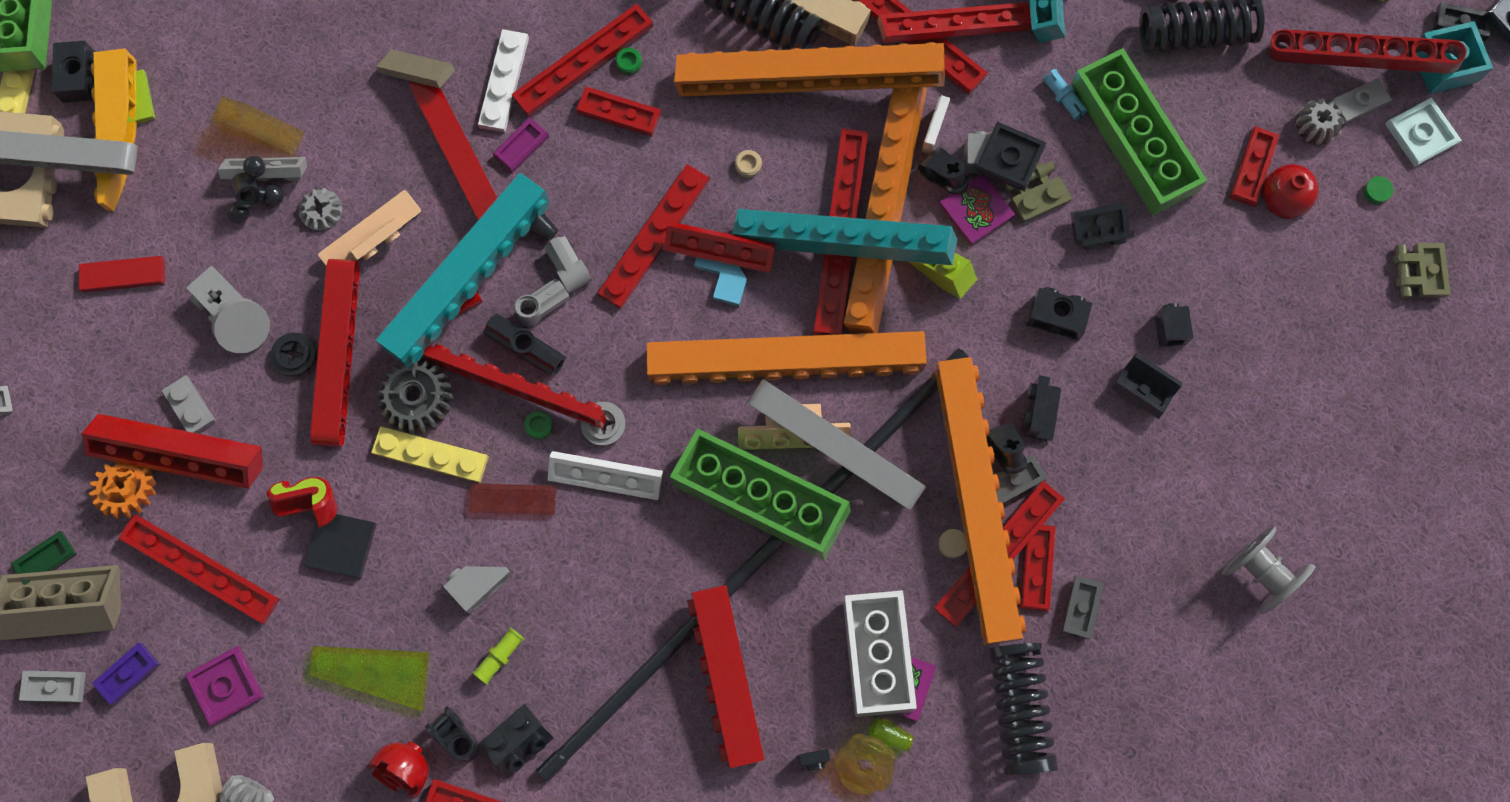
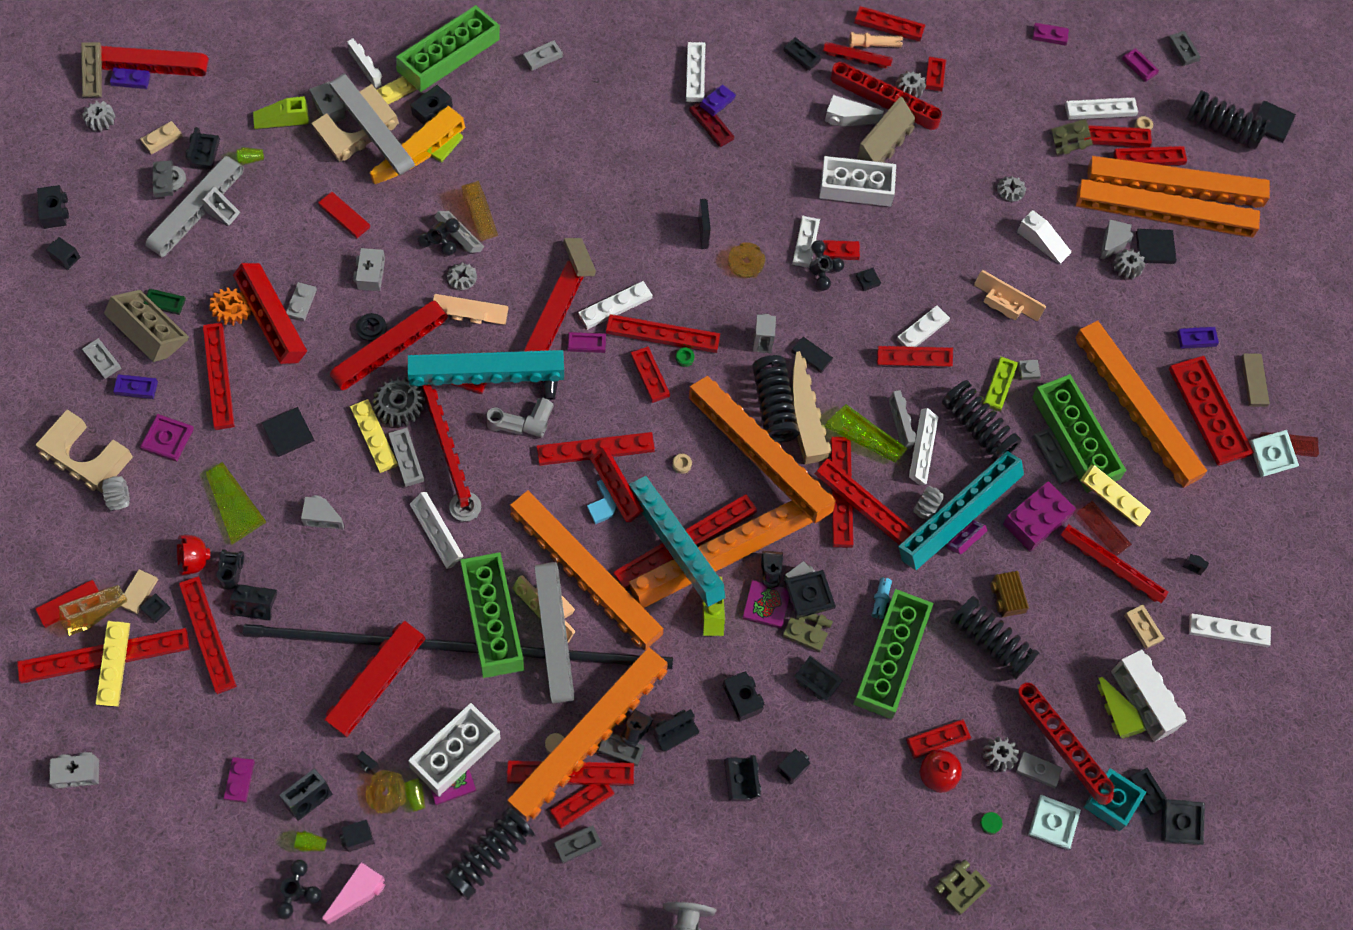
camera: 45 degrees right, 10 degrees down
(240, 325) = (363, 289): light grey tile -> none
(304, 496) = (299, 393): red animal -> none
(488, 439) = (406, 457): none -> light grey plate
(498, 655) = (291, 556): lime pin -> none
(511, 336) = (475, 442): black piece -> none
(513, 499) = (385, 495): clear red tile -> none
(538, 425) = (436, 475): green tile -> none
(935, 124) = (796, 541): white tile -> none

